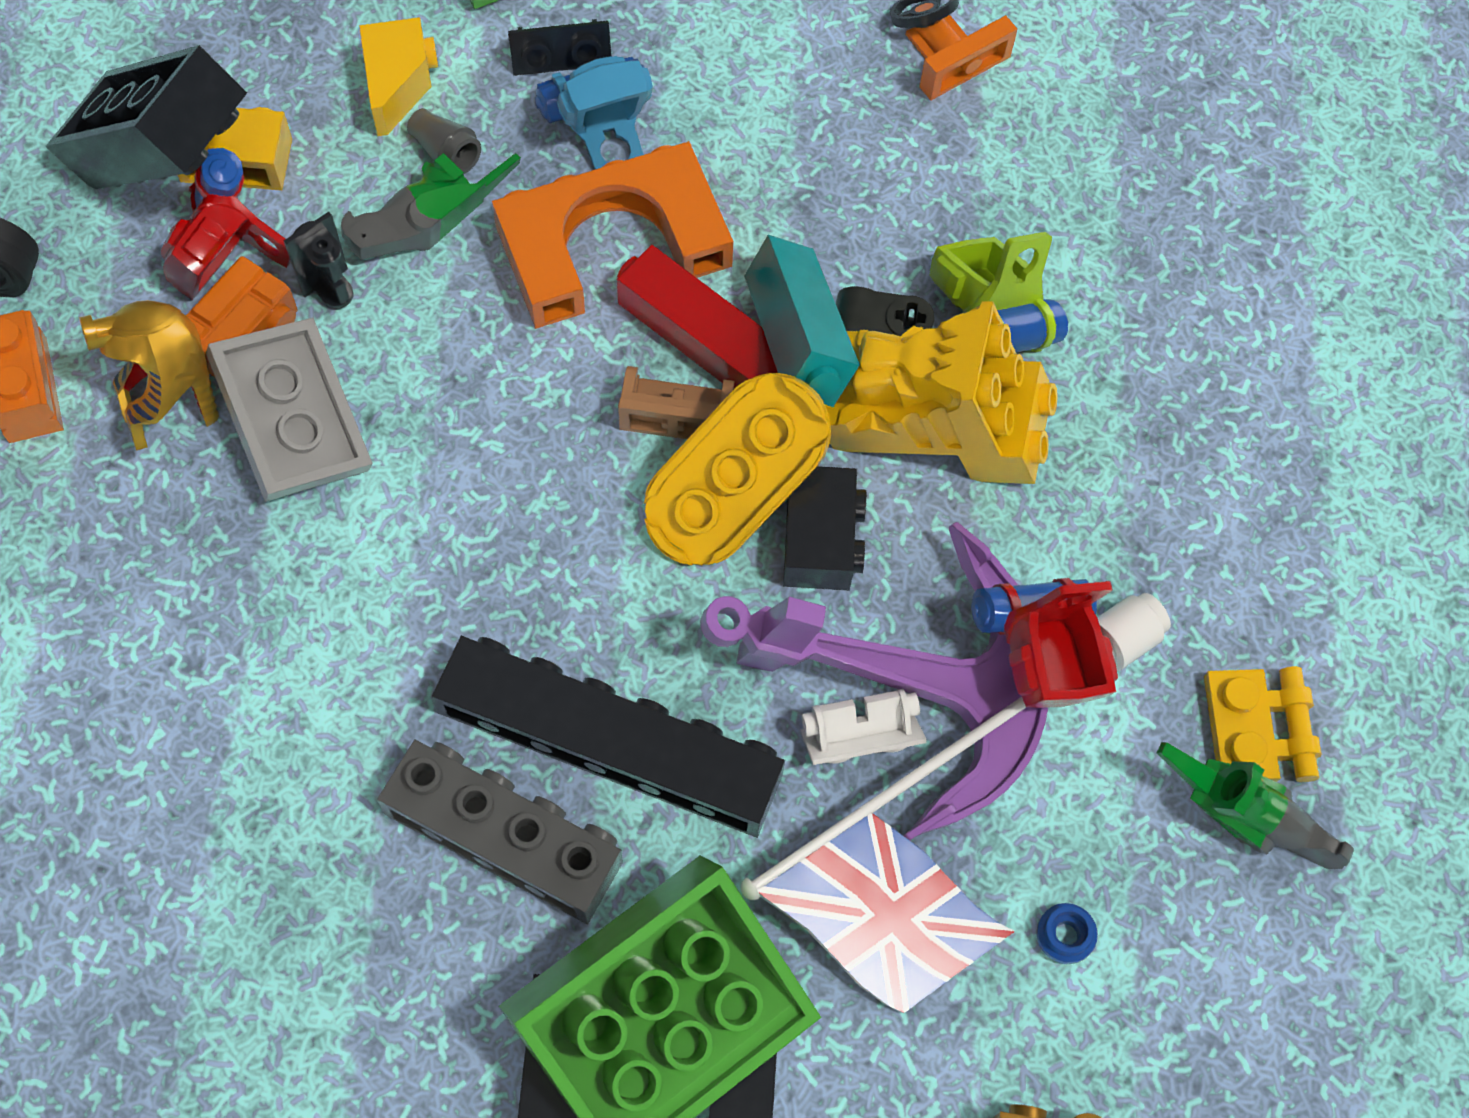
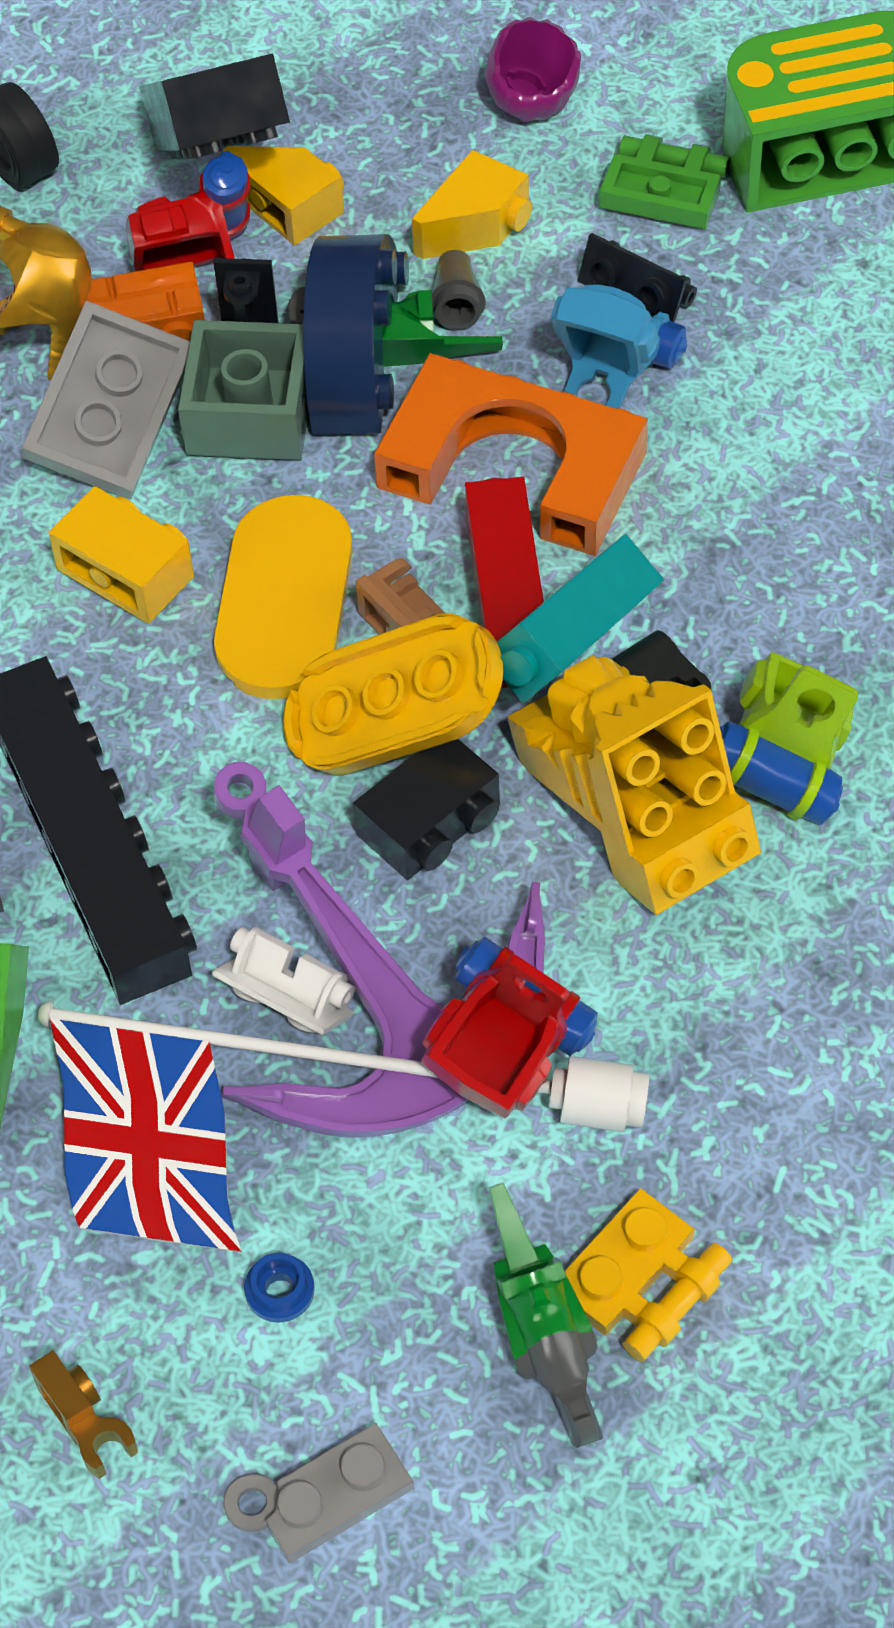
camera: 50 degrees right, 10 degrees down
(385, 323) = (244, 391): none -> sand green brick
(419, 220) = (344, 316): none -> dark blue brick
(423, 515) = (122, 554): none -> yellow brick
(559, 456) = (282, 593): none -> yellow tile
(1232, 1039) = (323, 1494): none -> light grey hinge

